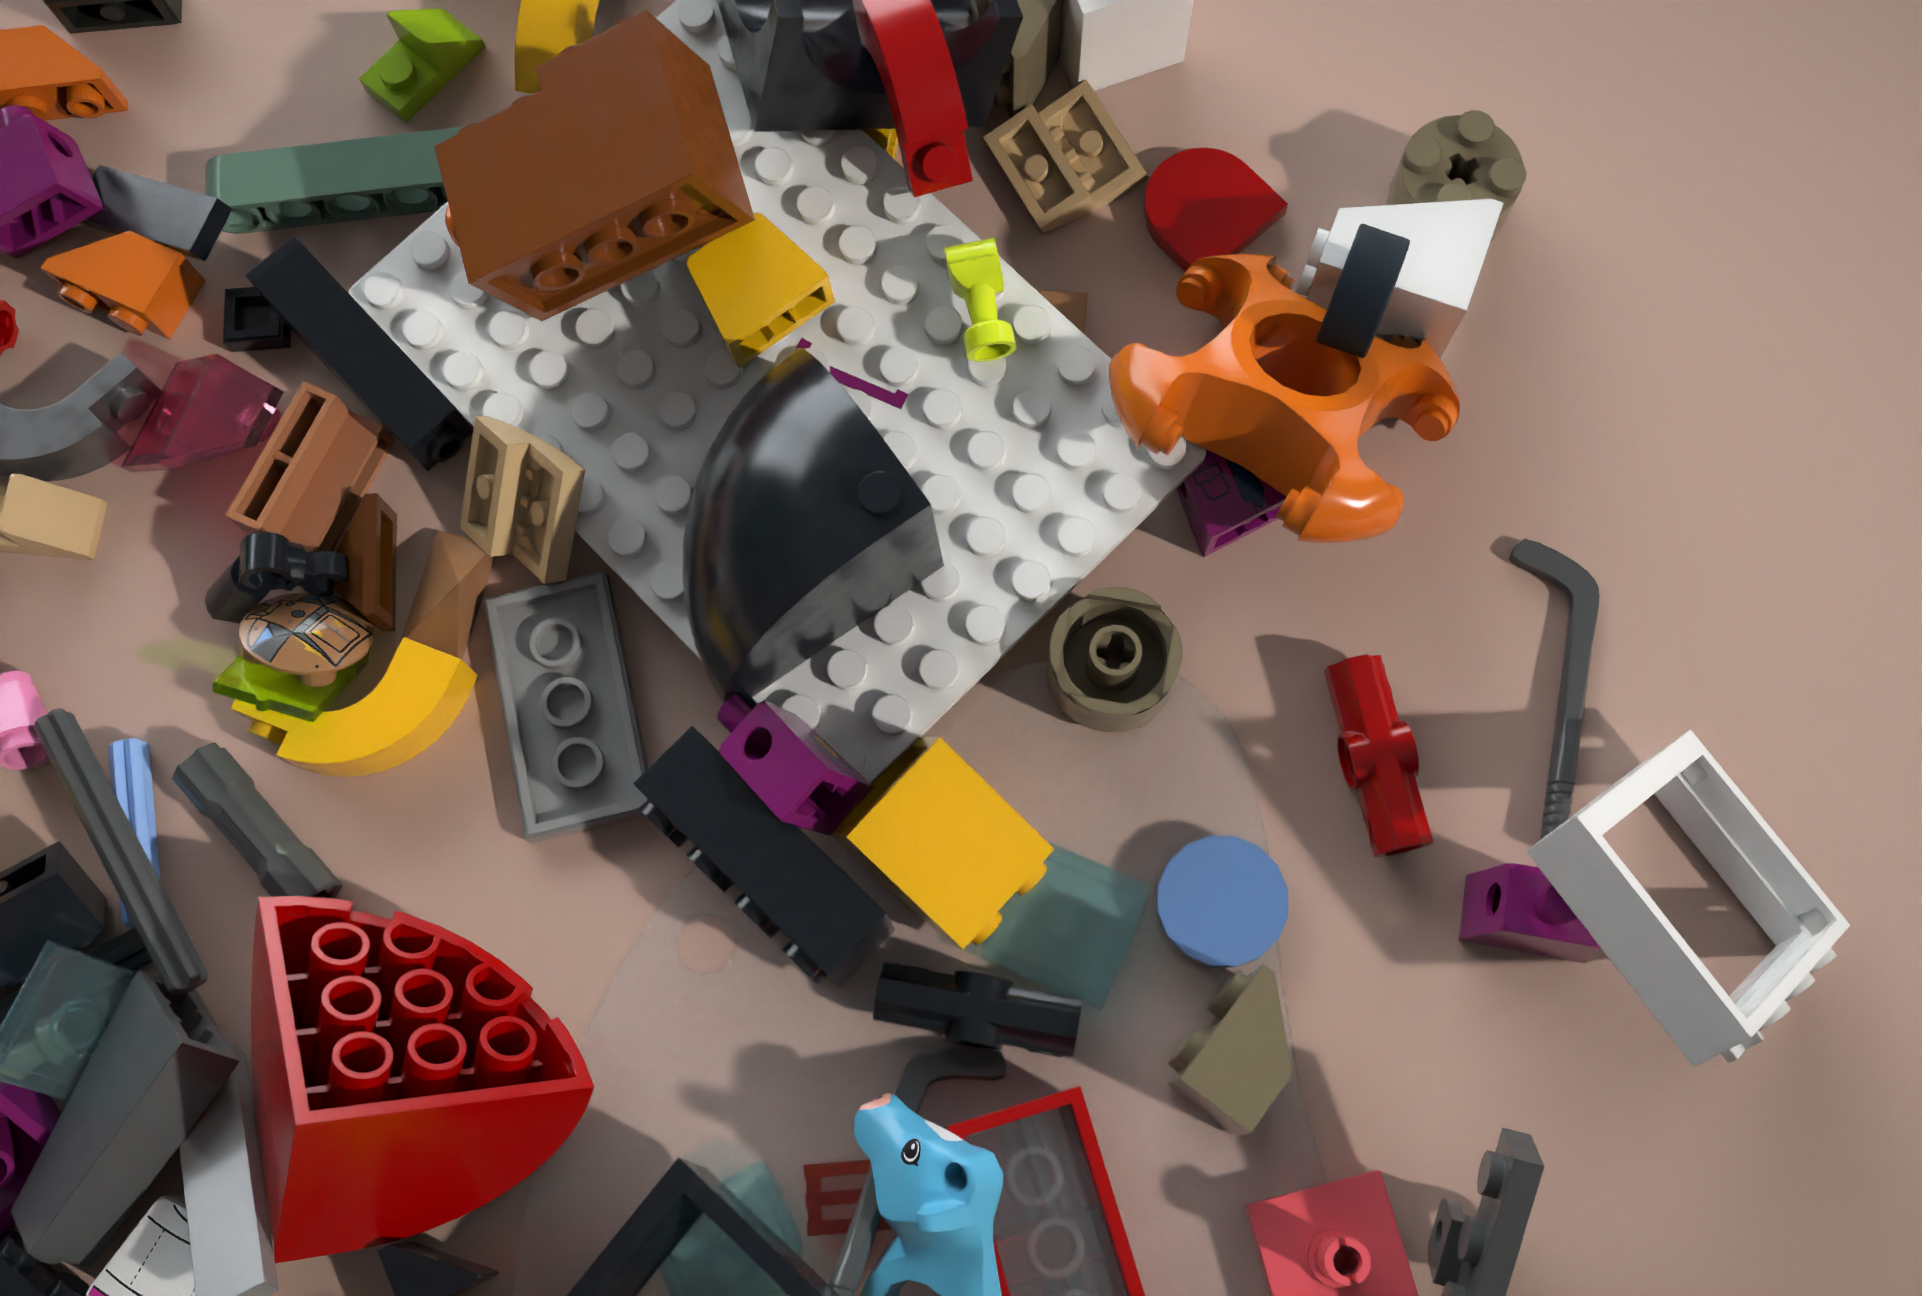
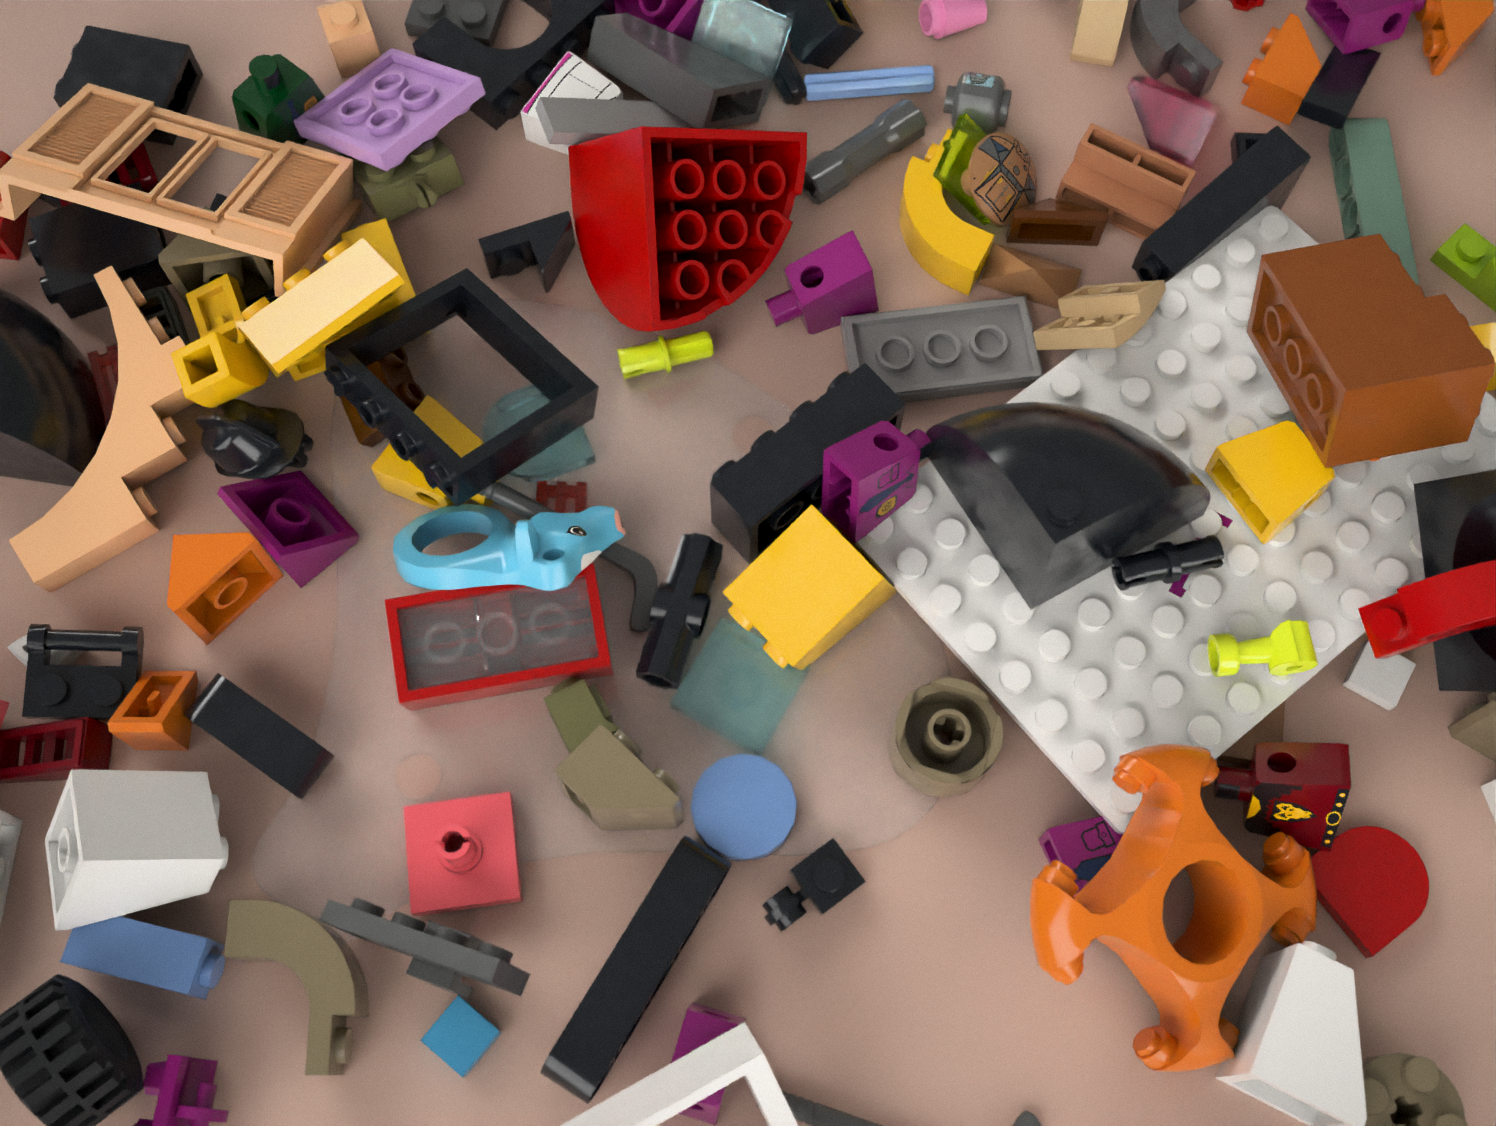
camera: 90 degrees right, 5 degrees down
(121, 852) = (853, 68): dark grey axle -> none
(178, 673) = (981, 98): none -> dark grey head
(267, 564) = (1053, 156): black bar -> none
(471, 840) = (827, 286): none -> magenta torso
(607, 1107) = (664, 354): none -> neon yellow axle
(875, 396) = (1167, 562): none -> black pin
(972, 199) = (1379, 679): none -> white tile
(1066, 158) = (1415, 765): tan slope -> none
(1126, 274) = (1291, 790): none -> dark red torso
(1143, 1122) = (577, 711): none -> olive window
(1292, 796) = (823, 877): none -> black plate
(1363, 290) = (1263, 962): black wheel -> none
(1378, 755) = (852, 951): red piece -> none
(1440, 1008) = (635, 969): none -> black beam
(1560, 1222) = (461, 1036): none -> dark azure tile

